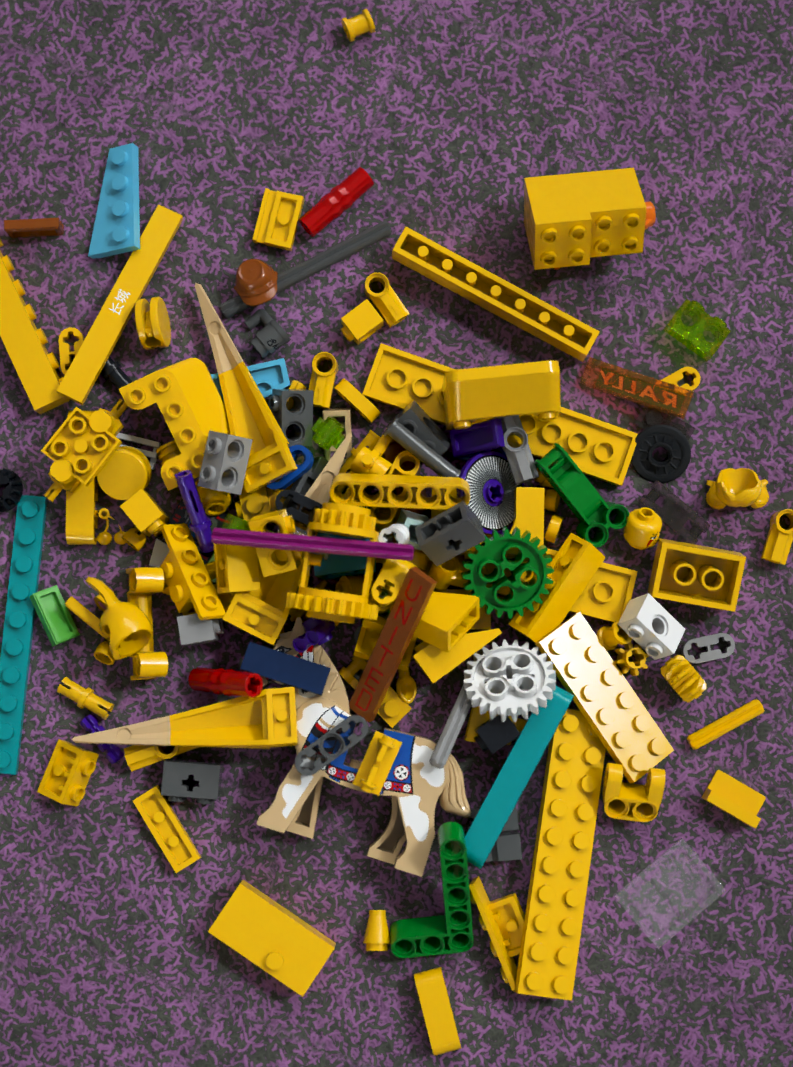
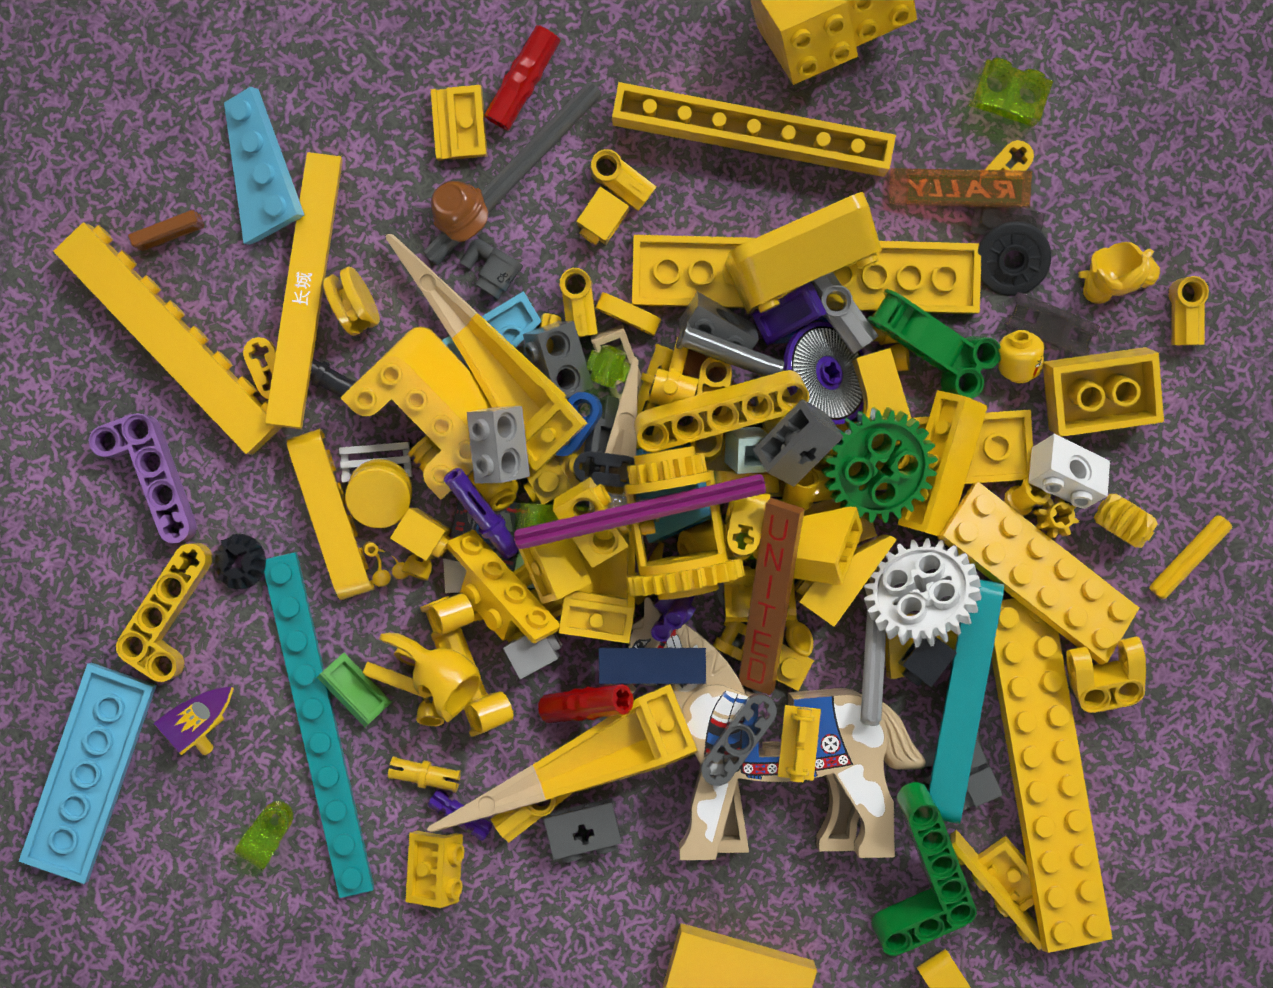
camera: 10 degrees left, 5 degrees up
(82, 447) = (321, 481): yellow piece -> none
(167, 829) = (572, 895): yellow plate -> none
(377, 931) = (858, 934): yellow cone -> none
(401, 531) = (737, 458): white bush -> none
(553, 528) = (914, 389): yellow tile -> none
(670, 893) = (1186, 776): clear piece -> none
(710, 654) = (1138, 466): light grey beam -> none
(734, 798) = (1228, 641): yellow panel -> none

